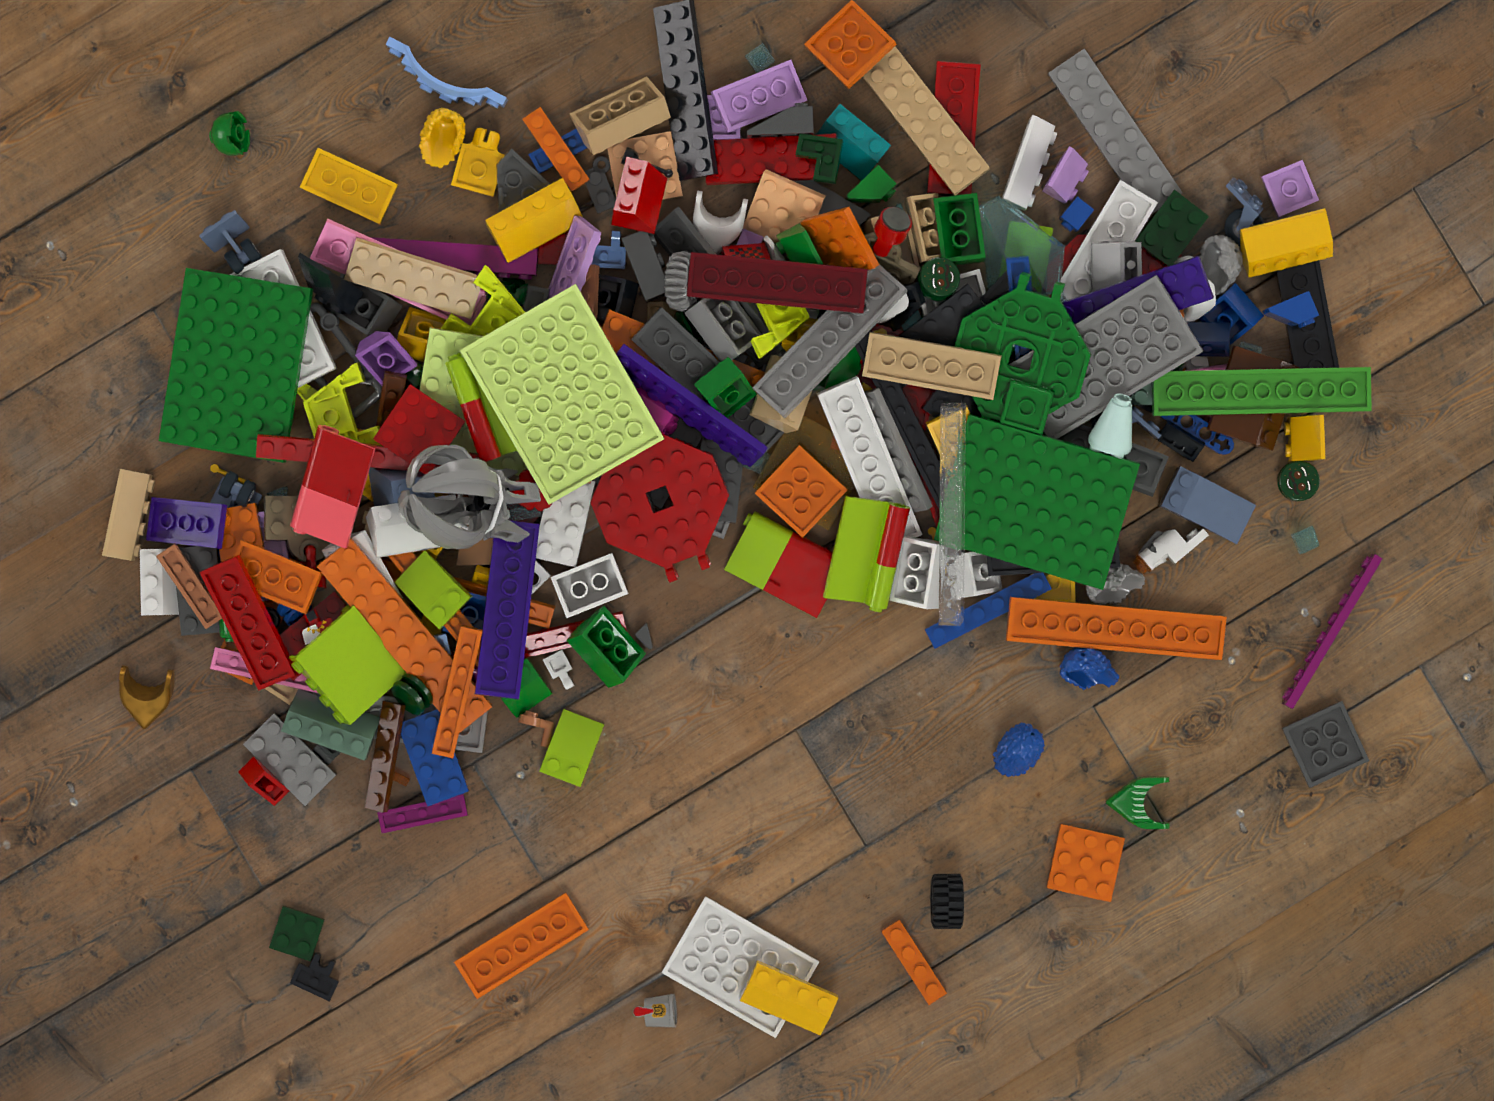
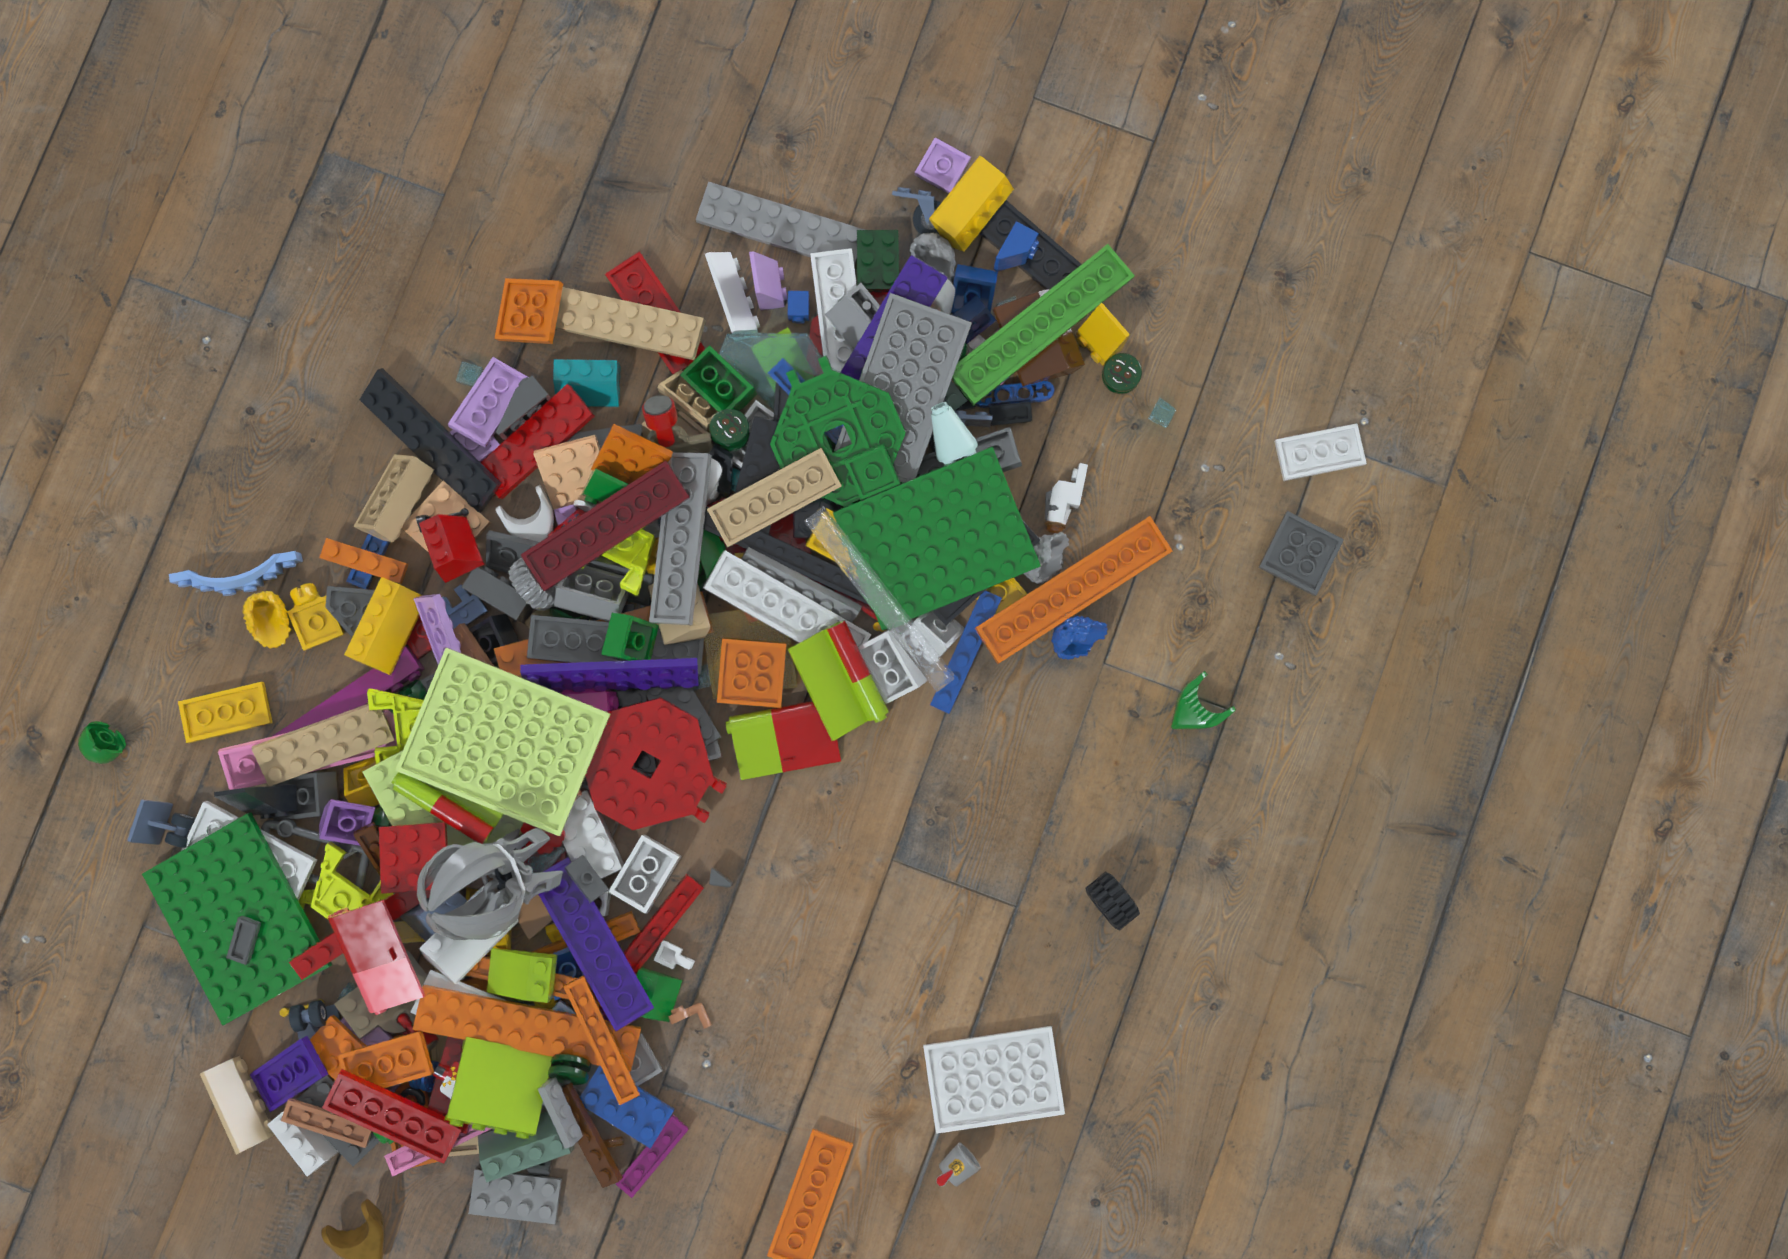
camera: 35 degrees left, 5 degrees down
(231, 388) = (243, 940): none -> dark grey tile
(263, 781) = (506, 1231): red slope -> none
(381, 722) = (560, 1112): none -> light grey plate
(541, 553) = (586, 879): none -> dark grey plate
(571, 748) = (729, 1011): lime slope -> none
(599, 186) = (419, 563): dark grey hinge -> none
(606, 647) = (695, 911): green slope -> none
(789, 998) = (1050, 1074): yellow slope -> none
(825, 151) = (570, 402): dark green plate -> none
(873, 188) = (627, 402): green slope -> none
(914, 962) = (1124, 968): orange plate -> none
(1018, 750) = (1074, 740): blue piece -> none
(1085, 862) = (1193, 786): orange plate -> none
(1207, 504) = (1067, 444): sand blue slope -> none
(1335, 623) = (1235, 456): magenta plate -> none
(1409, 674) = (1320, 452): none -> white tile

